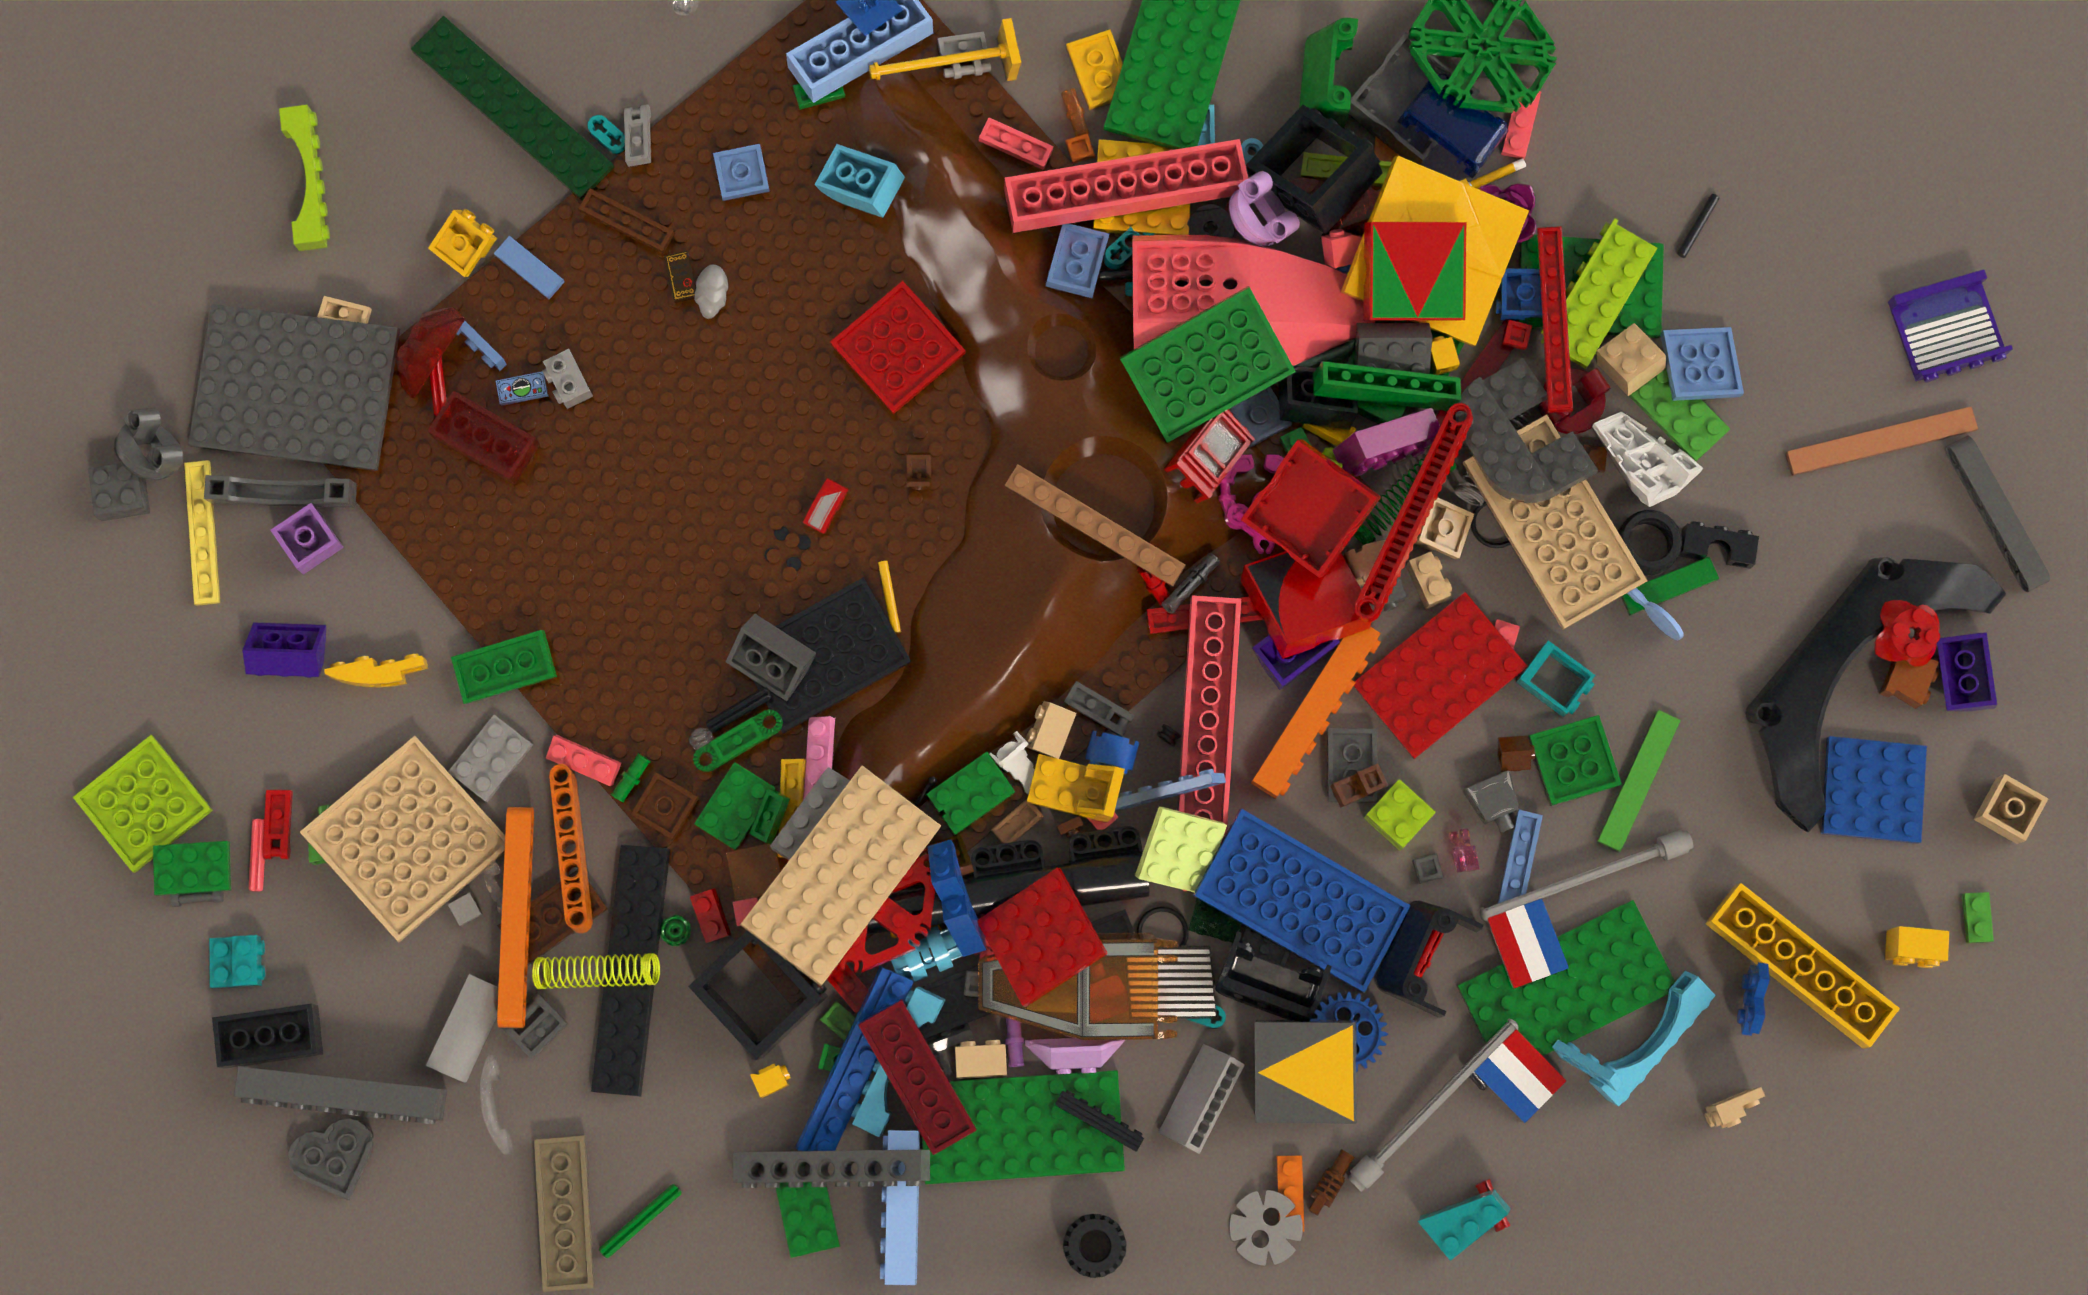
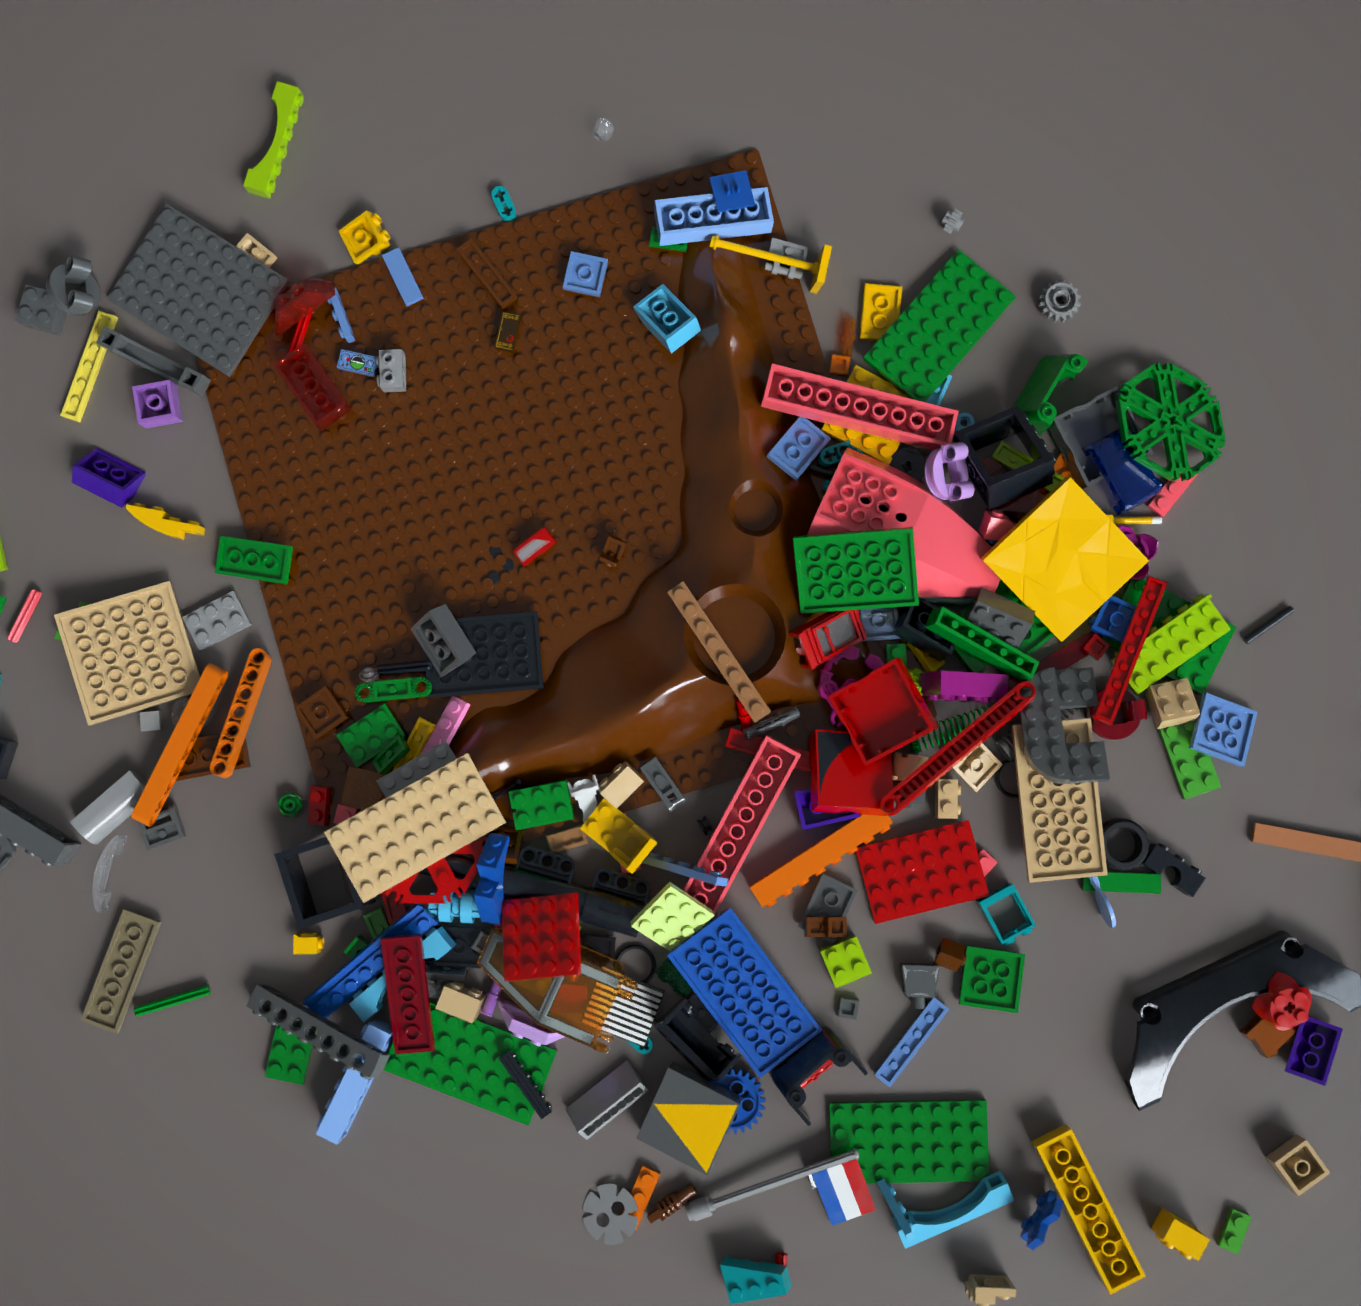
camera: 30 degrees right, 5 degrees up
(277, 823) = (47, 600): red plate -> none
(512, 108) = (444, 154): dark green plate -> none
(583, 760) = (280, 652): coral plate -> none
(627, 1009) = (245, 819): black plate -> none
(630, 777) = (306, 681): green pin -> none
(637, 135) = (523, 214): light grey plate -> none
(645, 970) = (187, 795): neon yellow piece -> none
(711, 290) = (524, 352): light grey arm -> none
(889, 596) = (550, 633): yellow bar -> none
(898, 347) = (639, 453): red plate -> none
(1015, 143) = (793, 341): coral plate -> none
(1070, 827) = (603, 859): reddish brown plate -> none
(1072, 1245) = (470, 1182): black tyre -> none
(1111, 751) = (657, 820): blue brick -> none
(1415, 271) = (1042, 569): tile -> none
(1443, 356) = (1034, 639): yellow brick -> none
(1464, 854) = (879, 1011): clear pink plate -> none
(1524, 927) = (897, 1087): flag -> none
(1598, 456) = (1113, 762): reddish brown plate -> none
(1638, 781) = (1031, 1014): bright green tile -> none
(1645, 462) = (1146, 783): white wedge -> none
(1874, 789) = (1202, 1101): blue plate -> none

